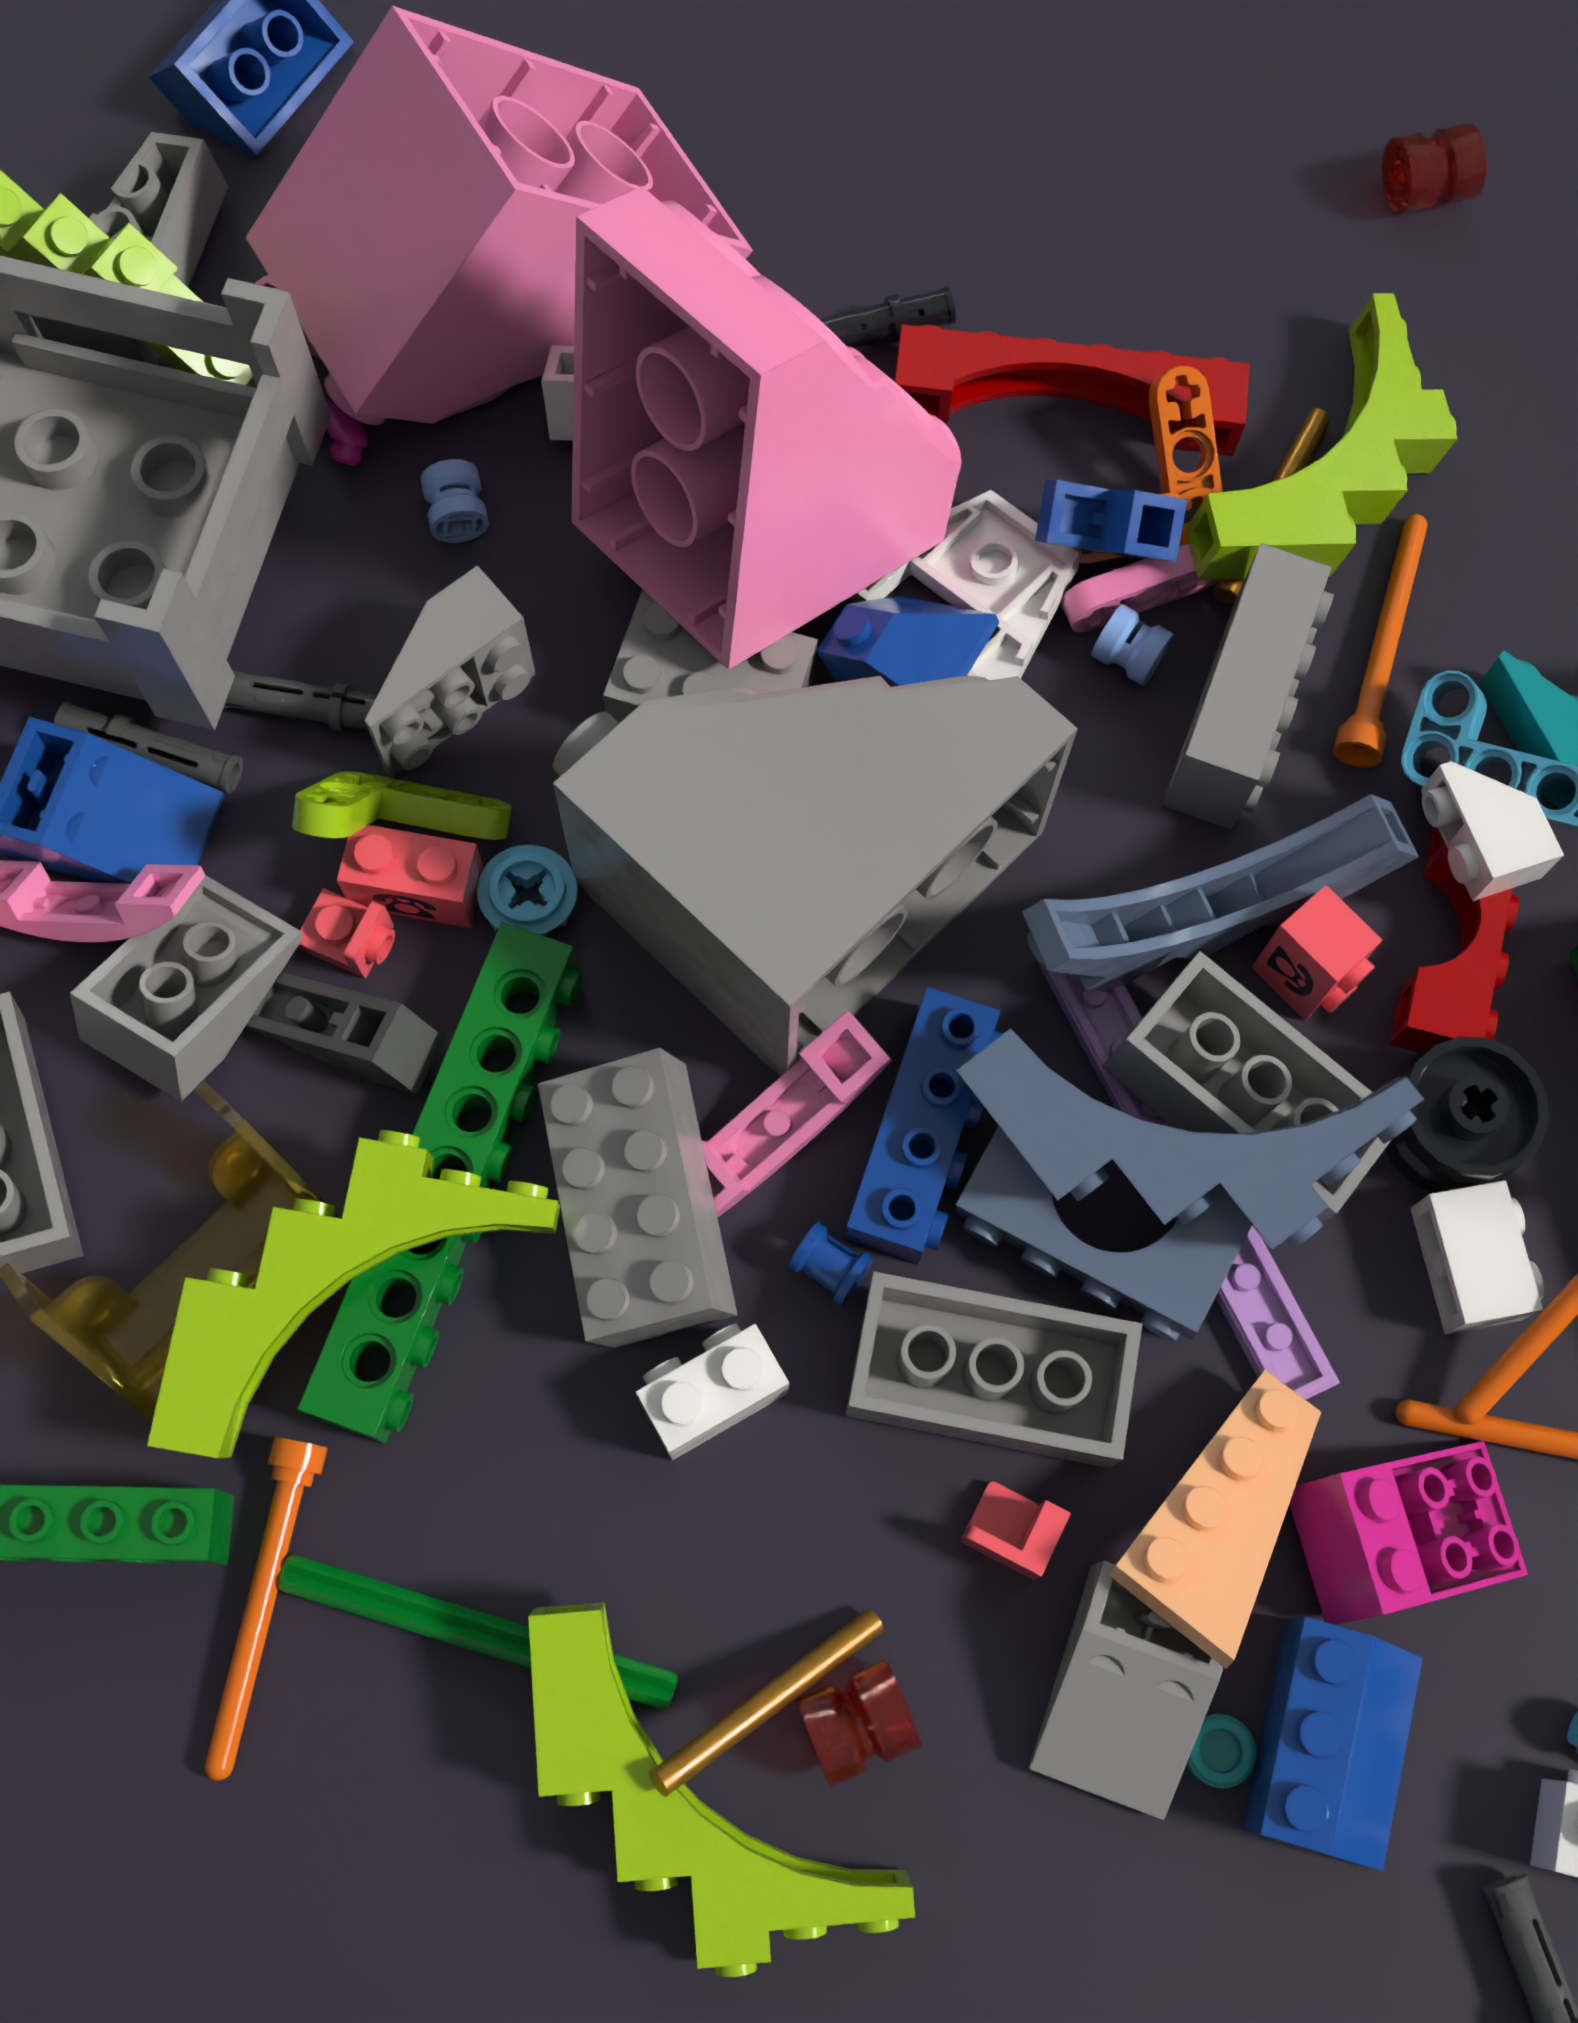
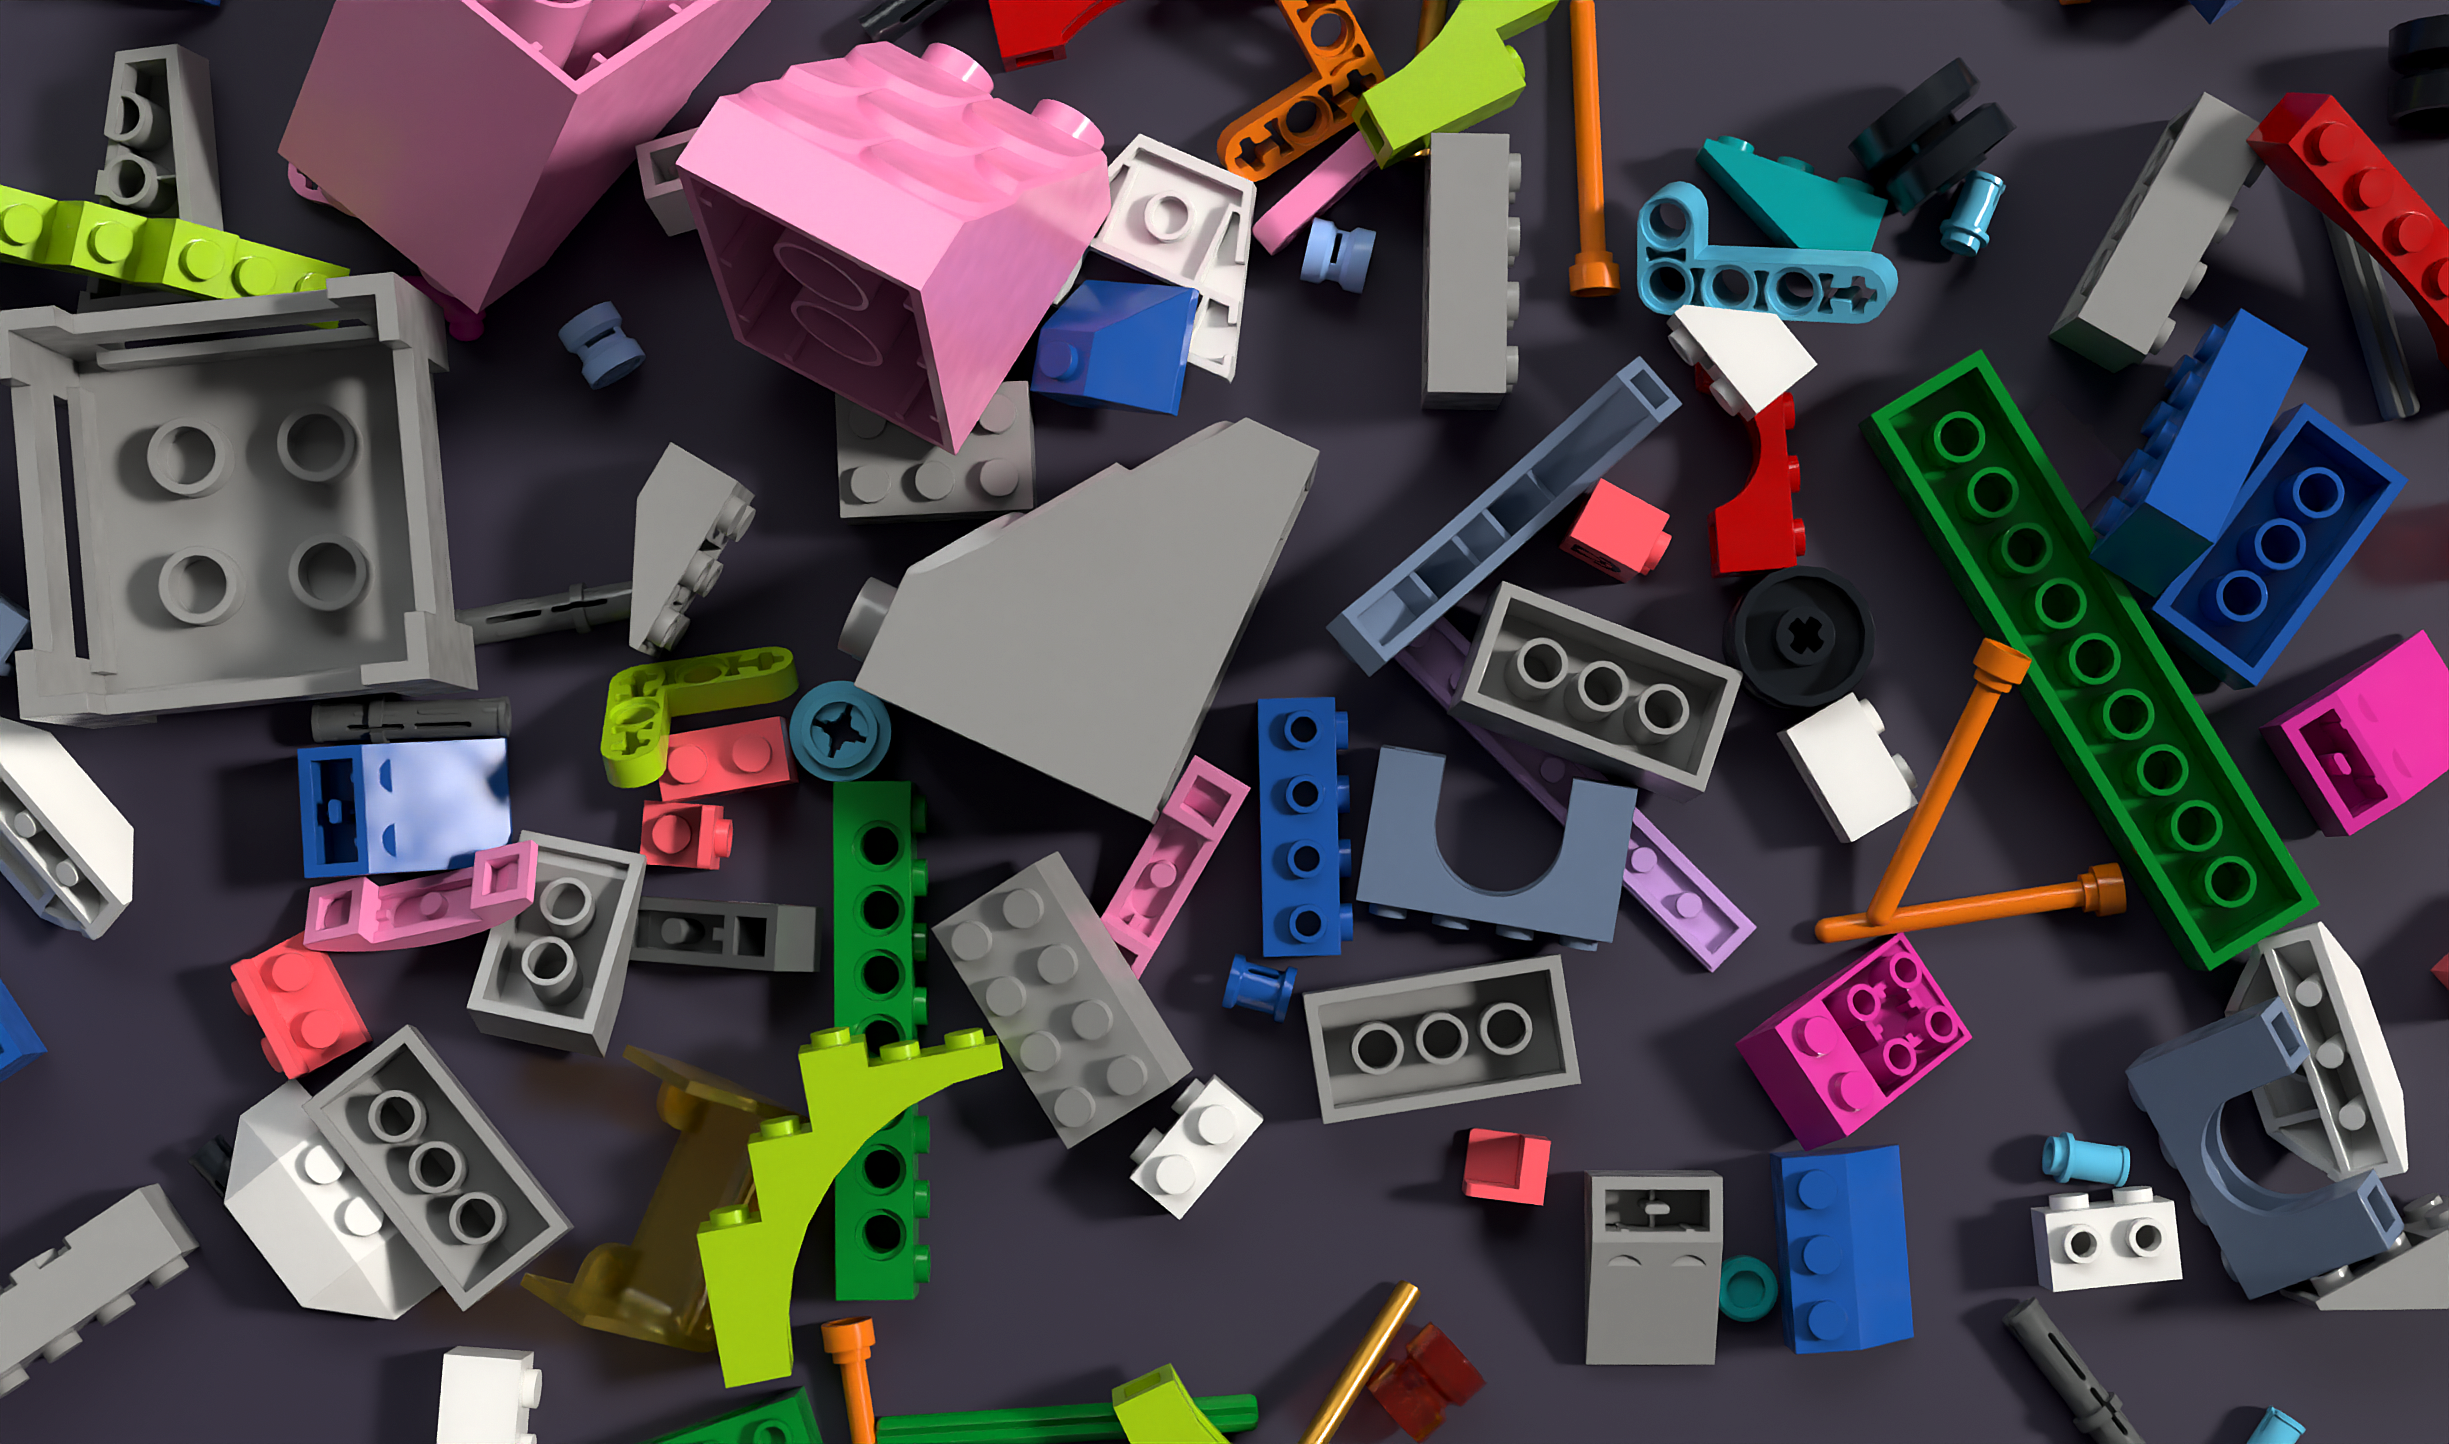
camera: 15 degrees left, 15 degrees up
(1111, 520) = (1276, 142): blue brick -> none
(1218, 1526) = (1683, 1109): light nougat wing -> none
(1263, 1172) = (1627, 787): sand blue arch -> none

